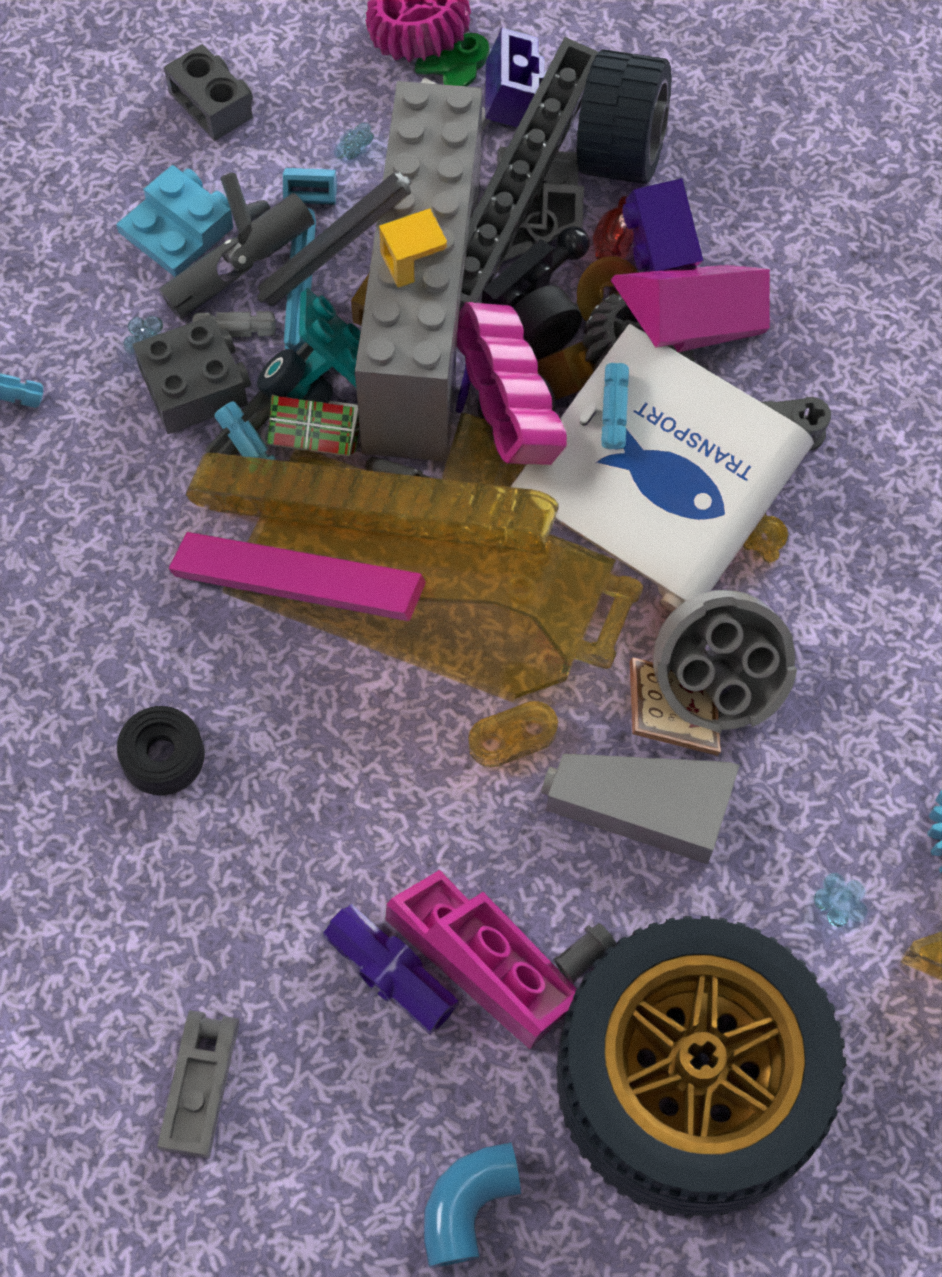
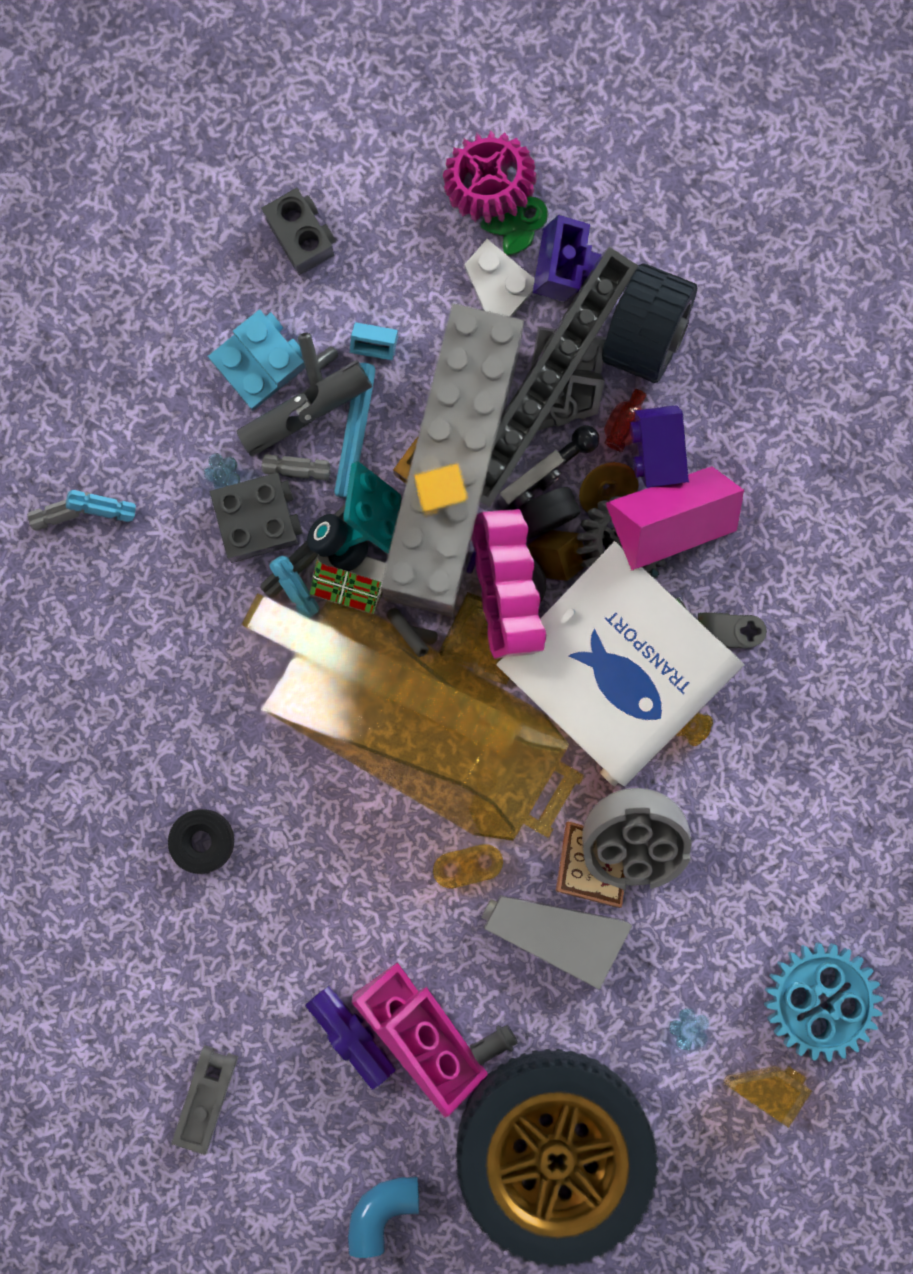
camera: 10 degrees right, 20 degrees up
(298, 576) = (319, 721): dark pink tile -> none
(335, 238) = (383, 438): dark grey axle -> none
(354, 141) = (418, 296): clear light blue plant -> none
(615, 406) = (589, 617): medium azure axle -> none

